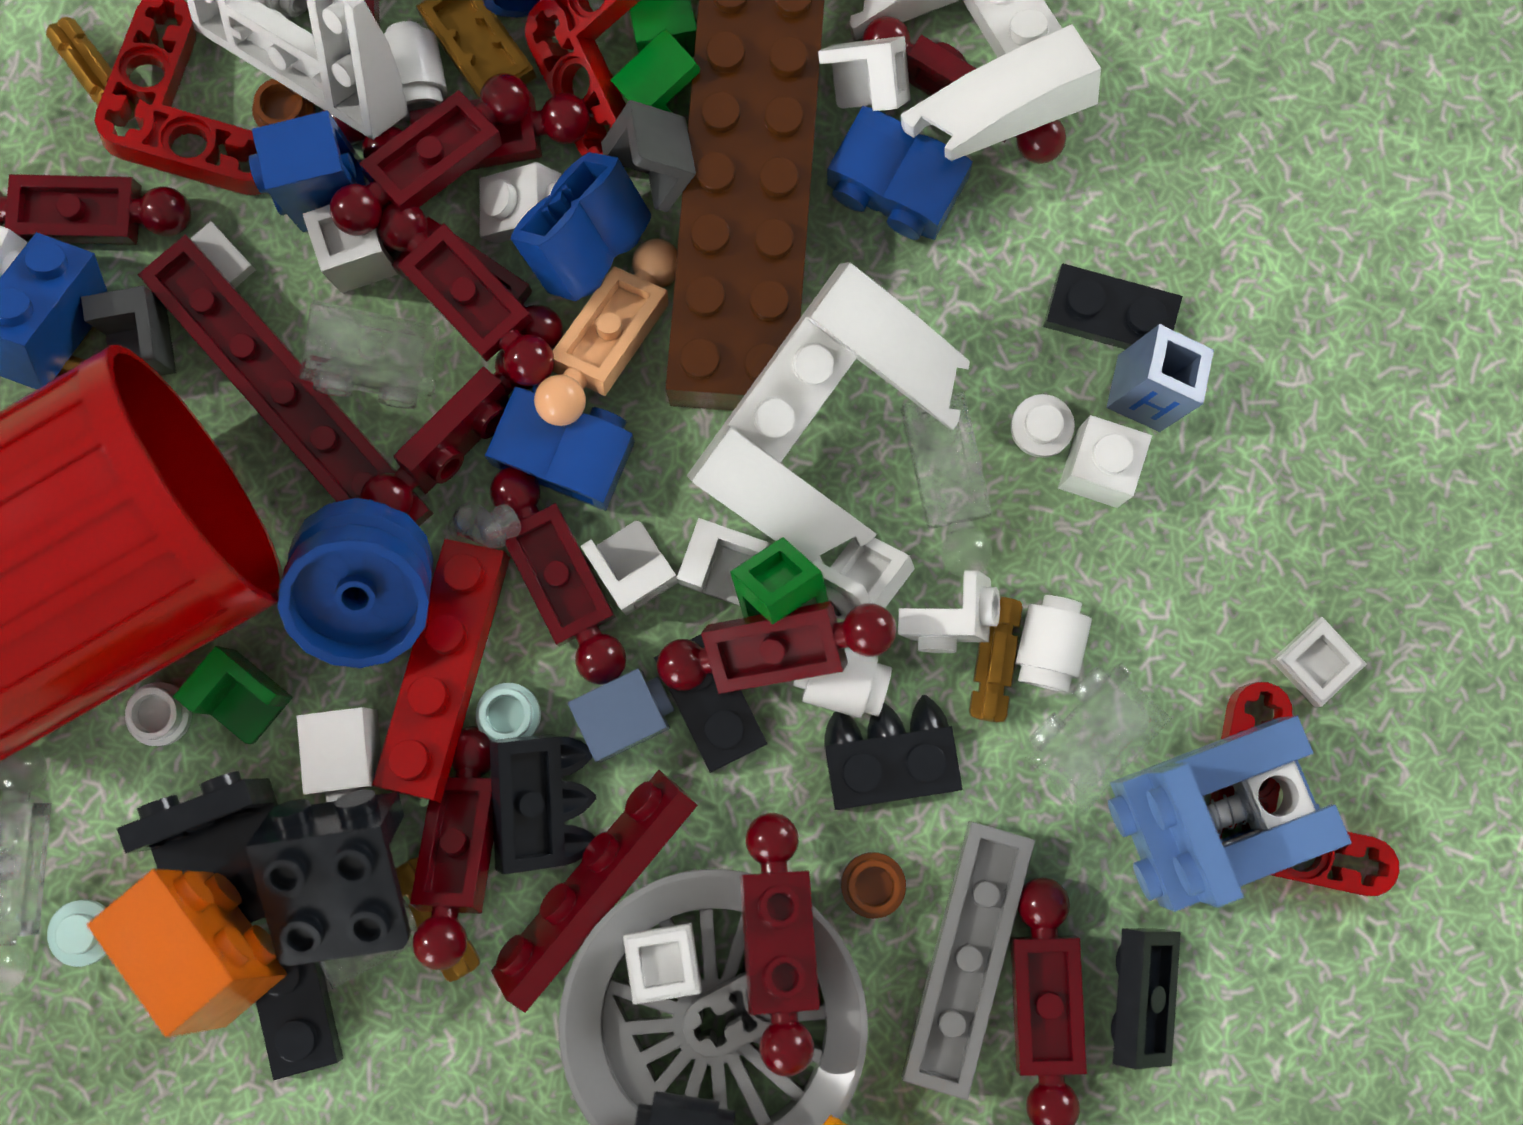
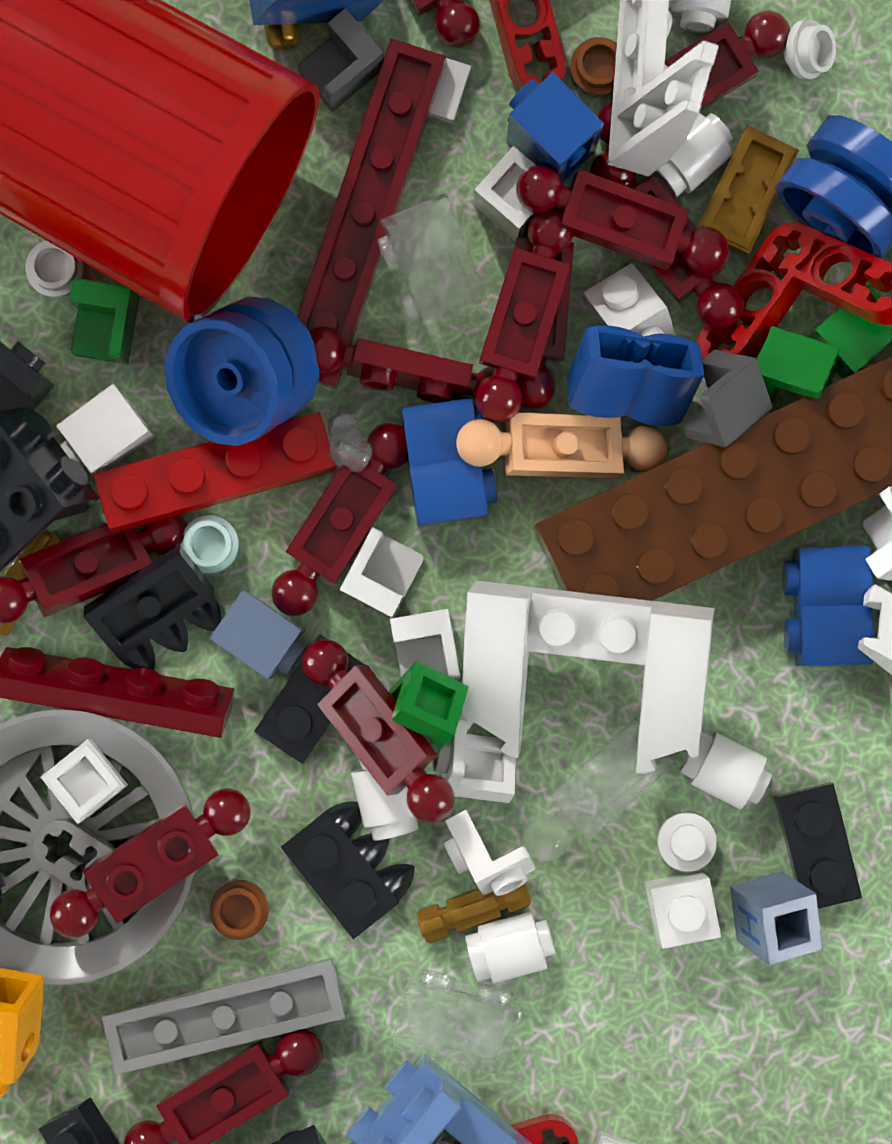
camera: 60 degrees right, 5 degrees up
(998, 350) = (727, 770): none -> white brick

